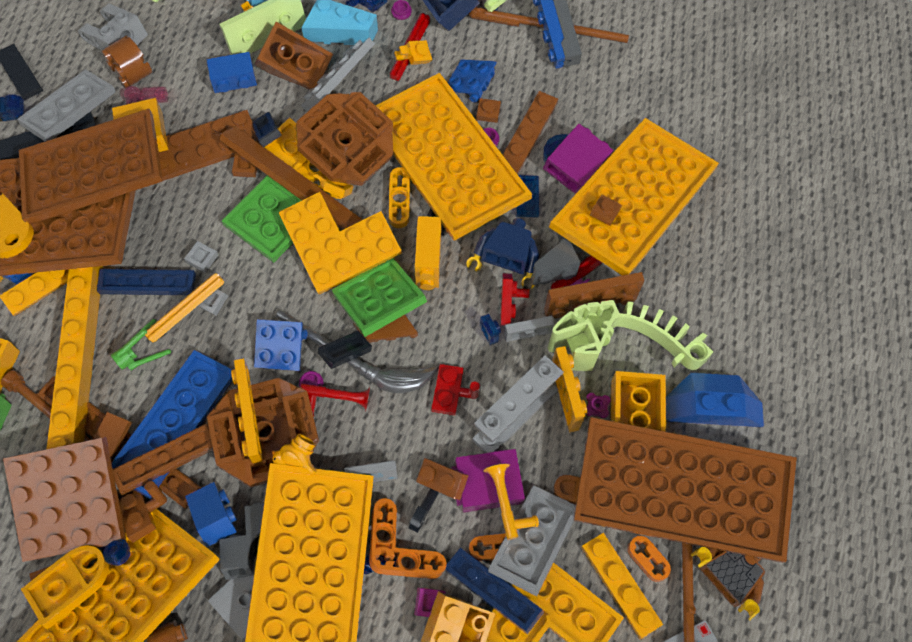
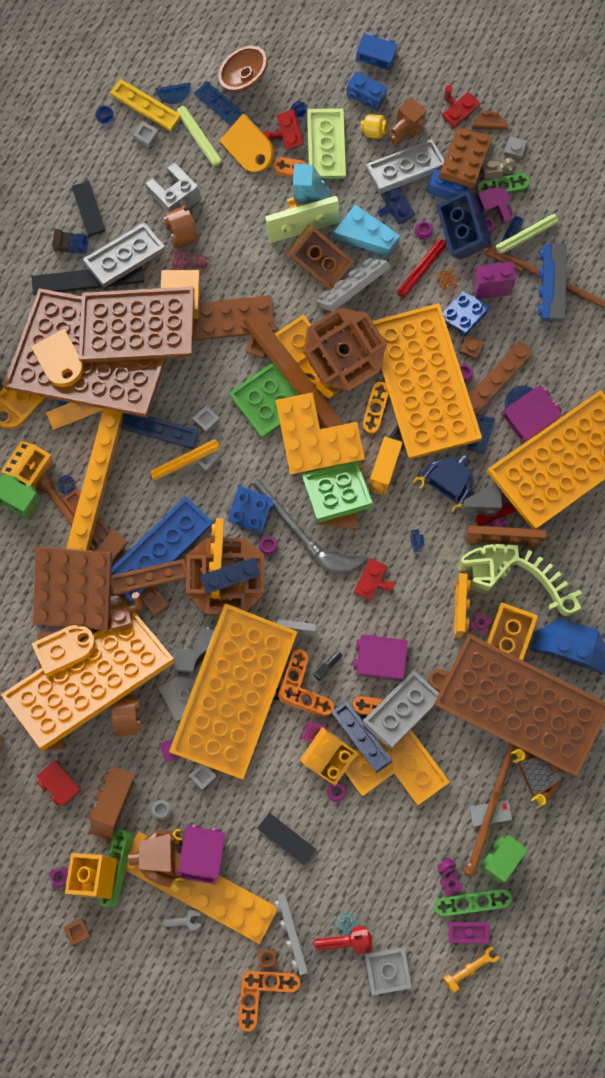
camera: 15 degrees right, 10 degrees up
(36, 370) = (63, 479): none -> clear blue bush
(116, 552) = (102, 640): clear blue plate -> none
(125, 355) = (132, 484): bright green plant -> none
(211, 514) = (173, 626): blue brick -> none
(231, 72) = (265, 258): blue brick -> none
(266, 129) = (282, 320): black tile -> none
(267, 426) = (230, 576): none -> dark blue plate
(296, 453) = (246, 601): light orange animal -> none
(320, 391) = (269, 554): red piece -> none
(344, 349) = (300, 527): black tile -> none
(415, 51) = (424, 277): light orange plate -> none
(440, 54) = (443, 282): none -> clear orange plate
(442, 478) = (347, 647): dark orange plate -> none
(493, 33) = (494, 280): none -> magenta brick
(510, 290) = (439, 514): red plate -> none
(510, 524) = (386, 687): light orange piece -> none
(517, 406) = (418, 608): light grey fence -> none
(528, 328) = (446, 548): light grey tile -> none
(605, 210) = (535, 469): dark orange plate -> none
(622, 586) = (456, 759): light orange plate -> none
(653, 554) = (486, 745): orange beam -> none

